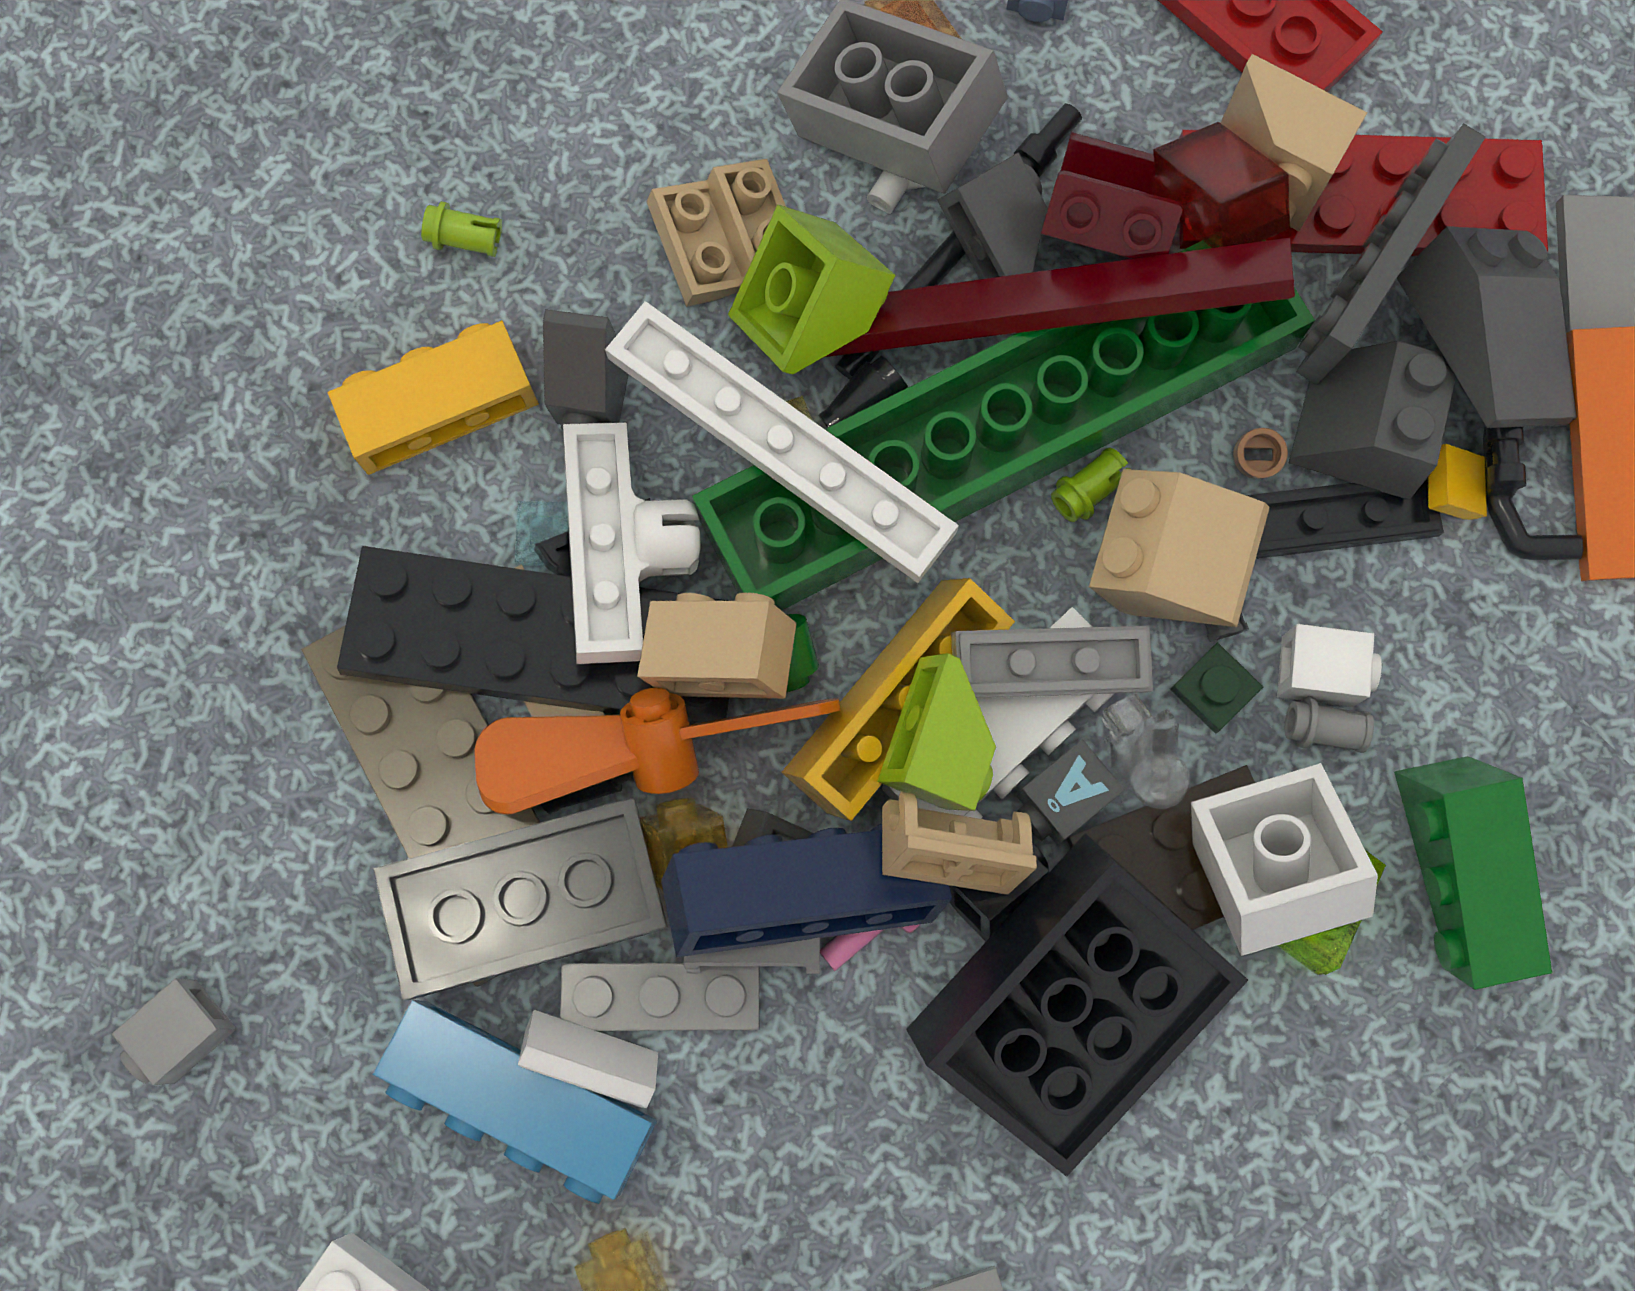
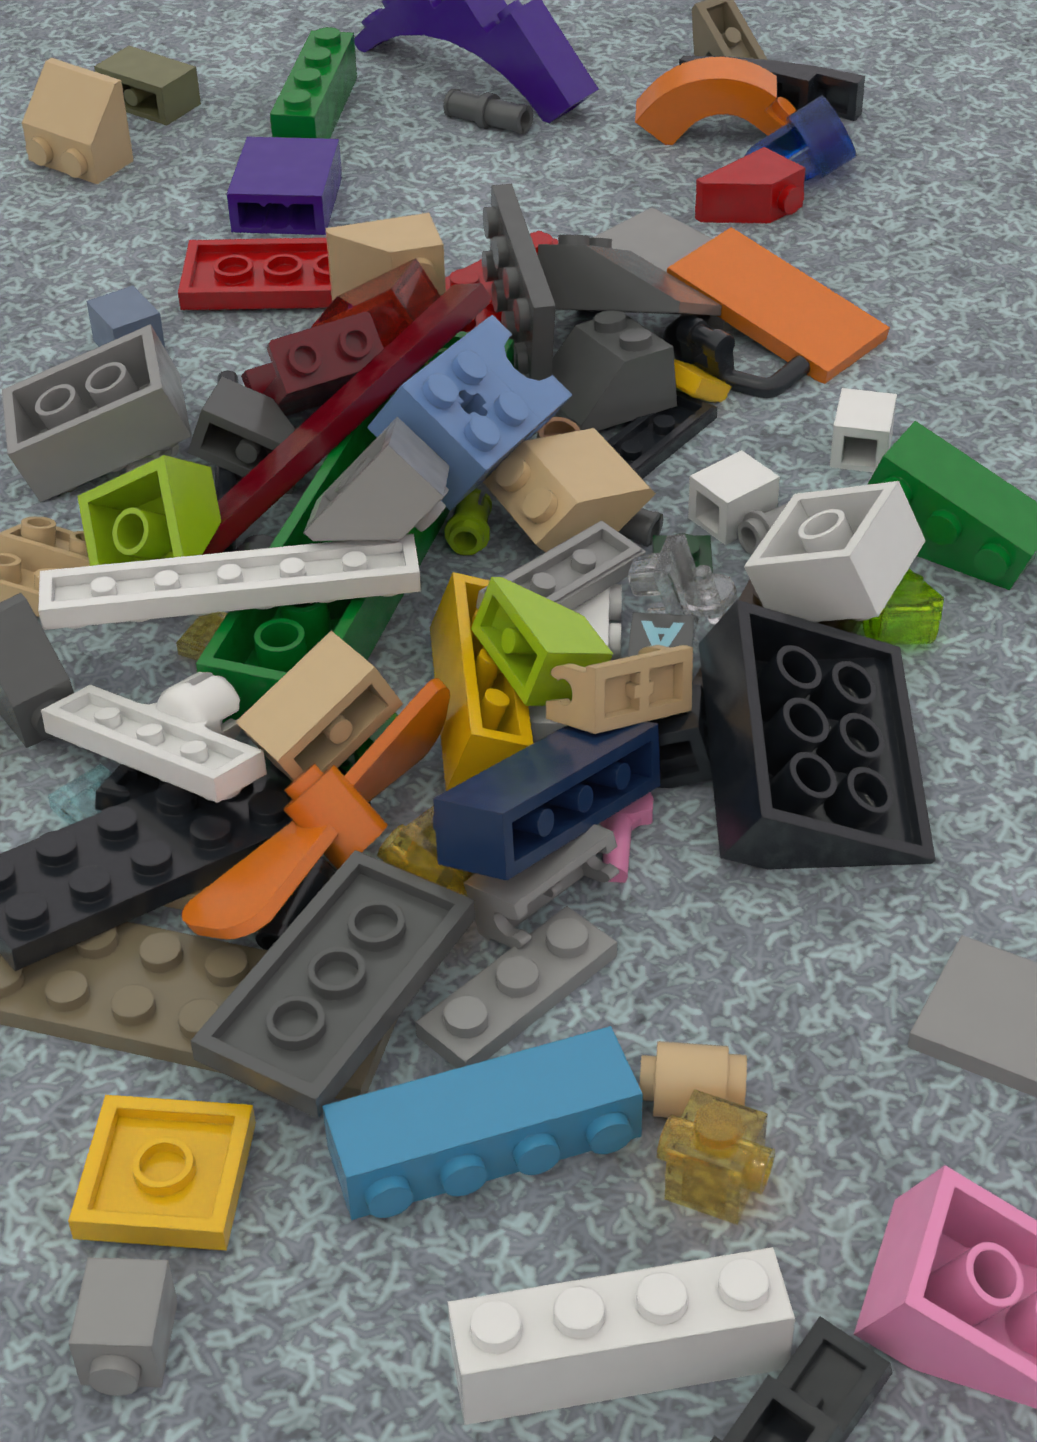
camera: 45 degrees left, 35 degrees down
(300, 930) = (163, 1172): none -> yellow plate
(589, 1059) = (508, 1037): white tile -> none
(680, 1203) = (683, 1067): none -> tan brick
(969, 460) = (383, 492): none -> light grey slope
(1155, 410) = (473, 407): none -> medium blue brick
(1529, 689) = (862, 429): none -> white brick

